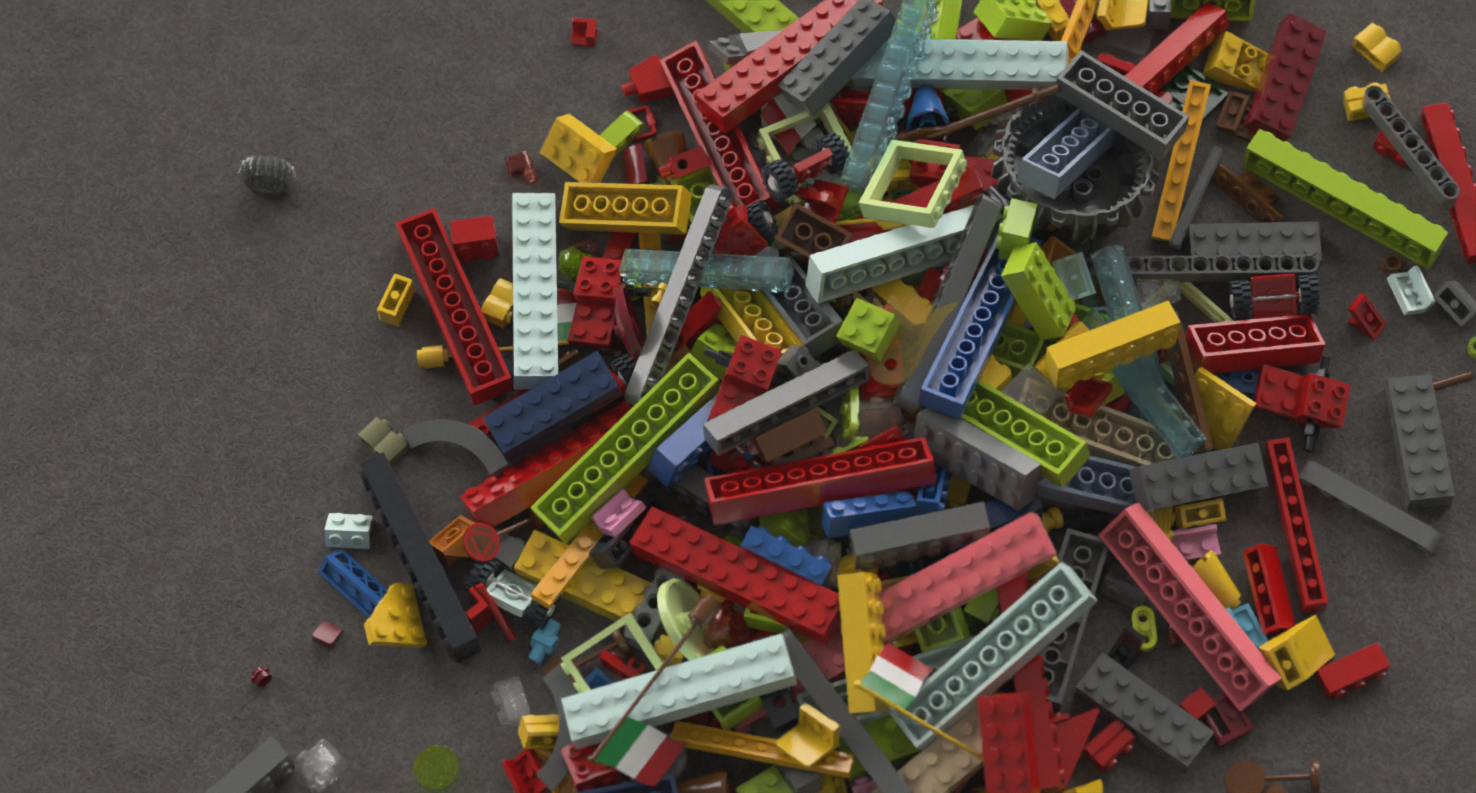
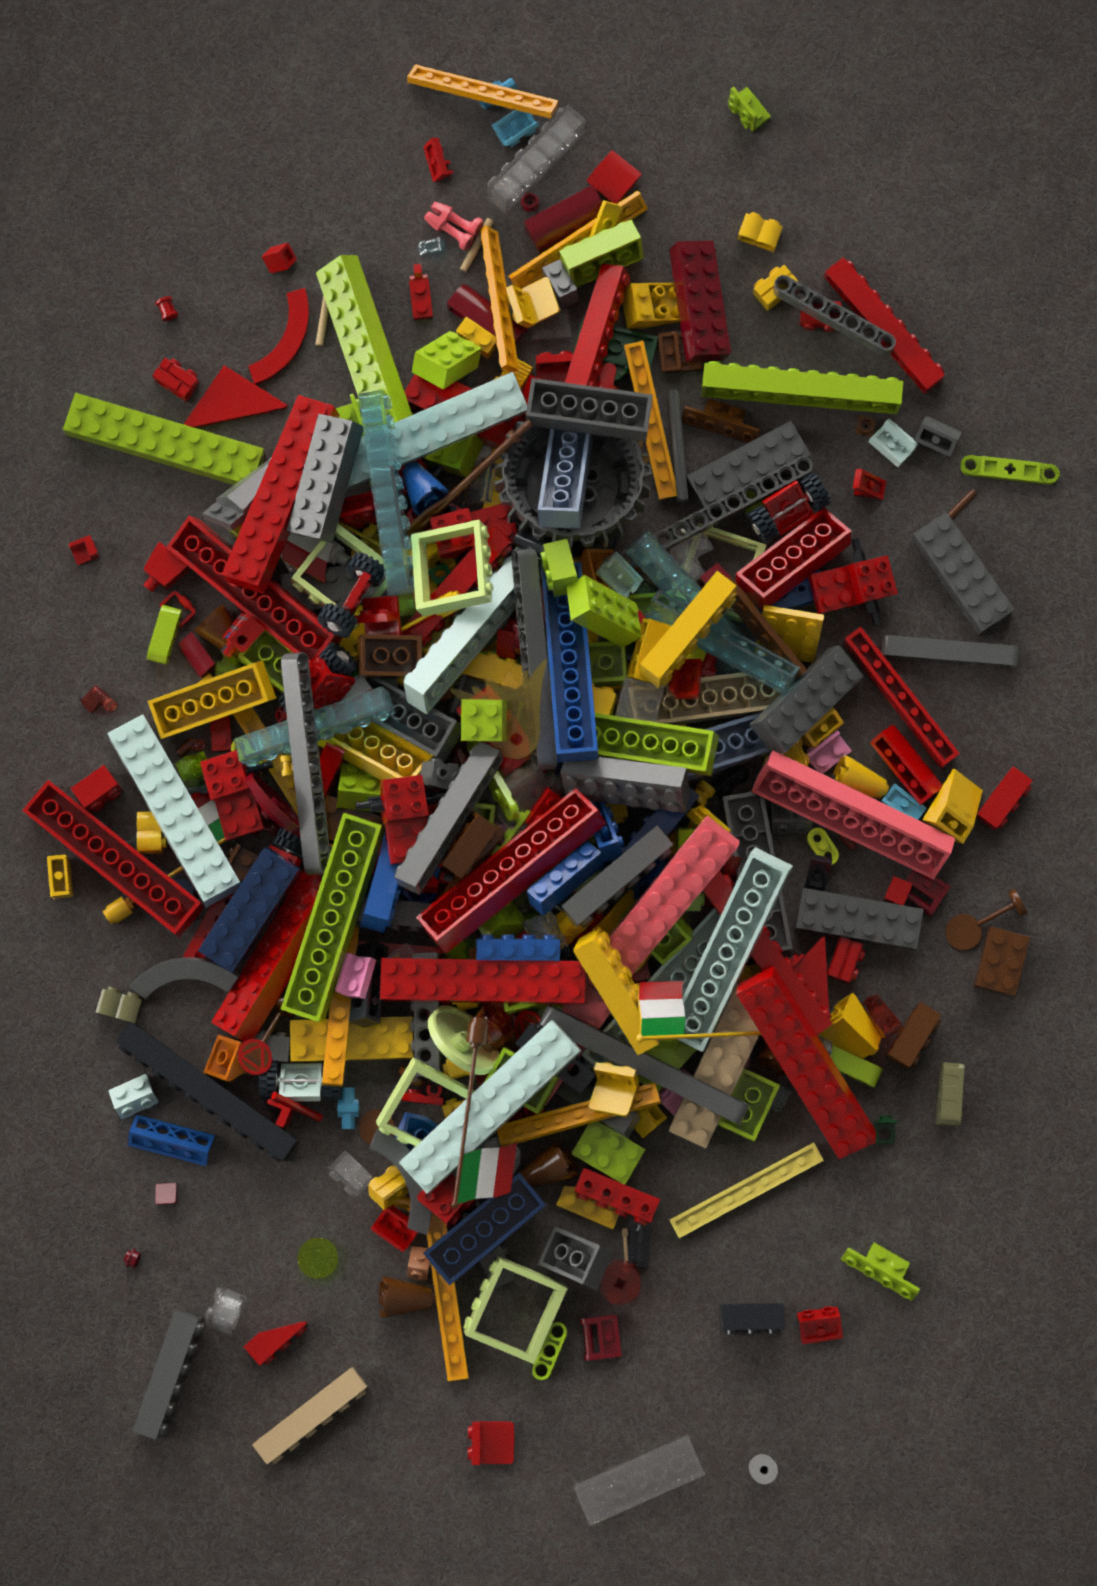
camera: 30 degrees left, 15 degrees up
(396, 619) = (218, 1154): yellow plate -> none
(578, 150) = (141, 664): yellow brick -> none

